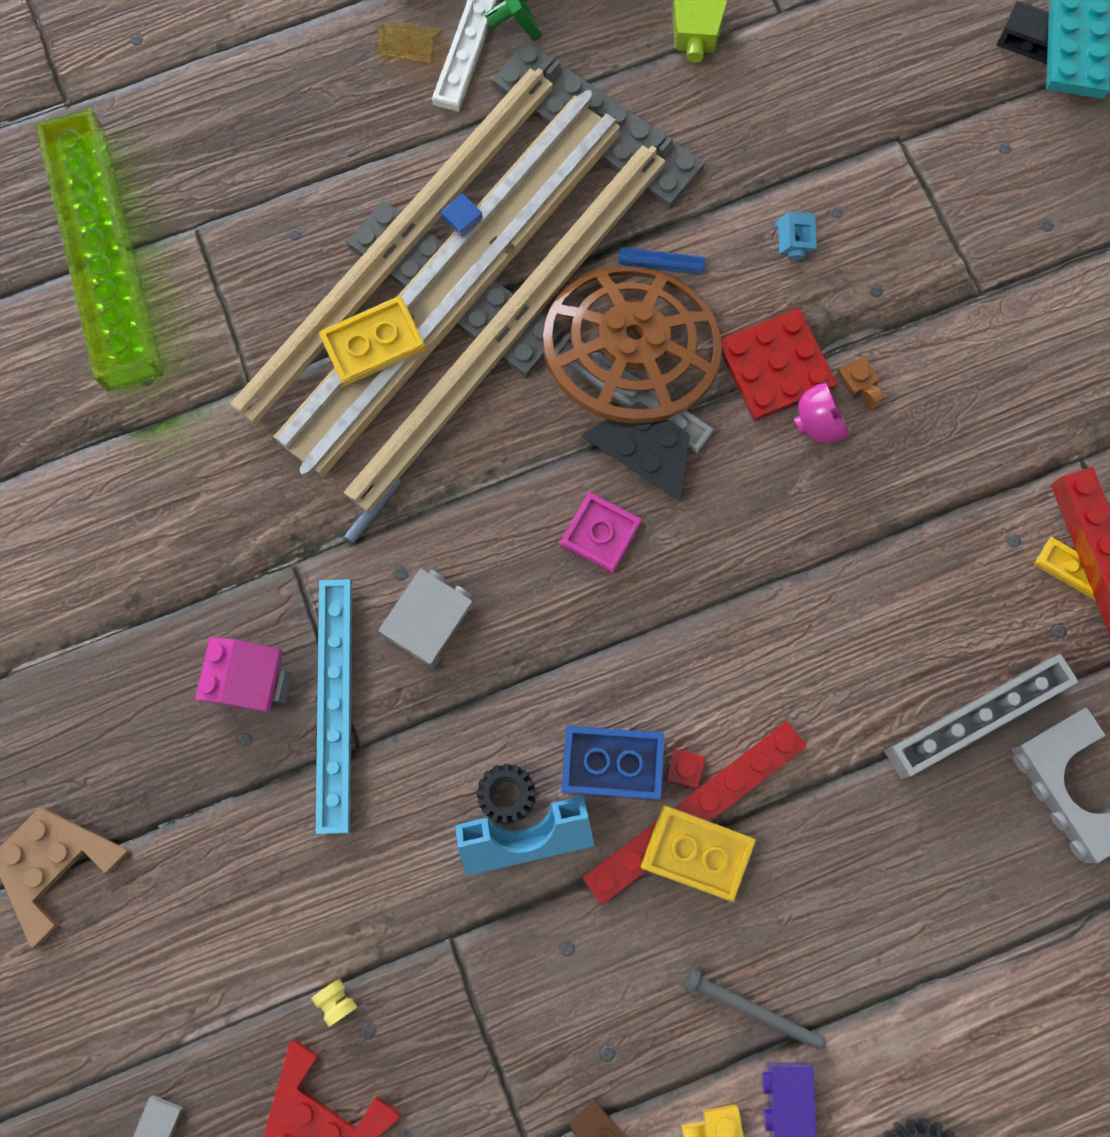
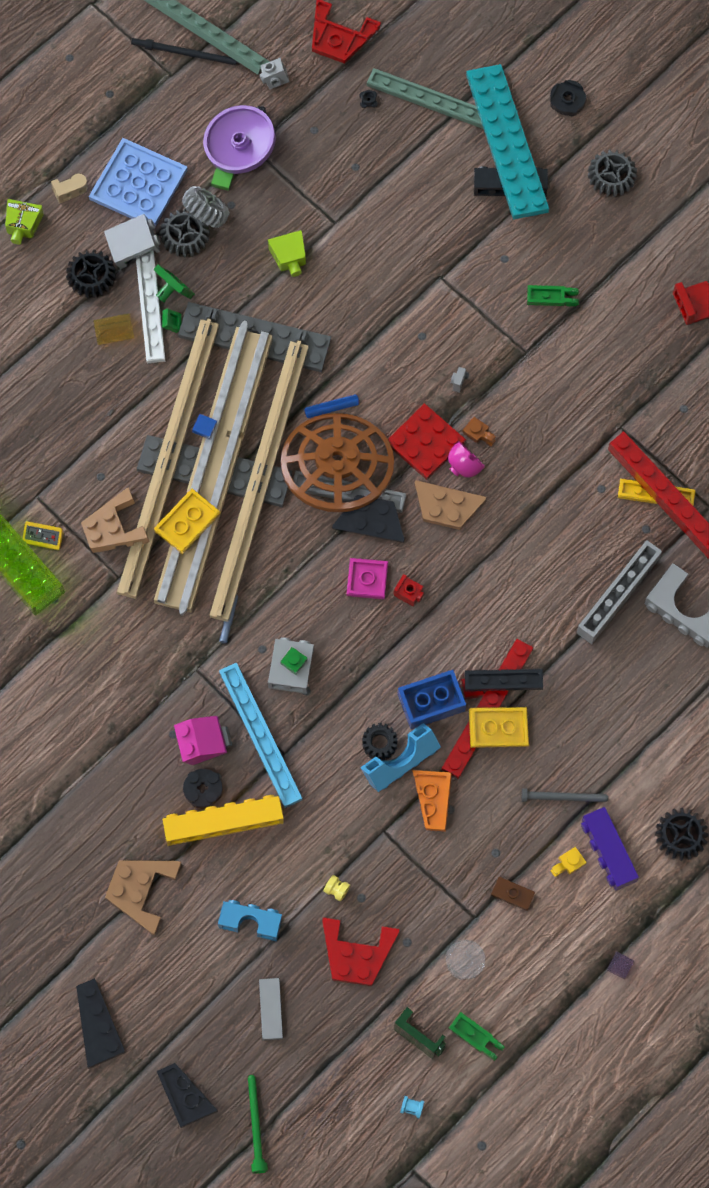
camera: 30 degrees left, 5 degrees down
(173, 284) = (42, 535): none -> slope
(195, 753) = (210, 796): none -> black plate
(204, 1008) = (234, 914): none -> dark azure arch
(216, 815) = (223, 820): none -> yellow brick
(259, 306) = (105, 529): none -> medium nougat wing
(429, 614) = (293, 660): none -> green plate
(491, 56) = (171, 320): none -> green plate
(549, 922) = (434, 797): none -> orange wing
(653, 590) = (401, 592): none -> red brick
(738, 782) = (503, 680): none -> black plate
(767, 471) = (446, 505): none -> medium nougat wing
(796, 235) = (405, 360): dark azure brick -> none
(863, 292) = (458, 379): none -> light grey plate
(1056, 225) = (551, 295): none -> green hinge

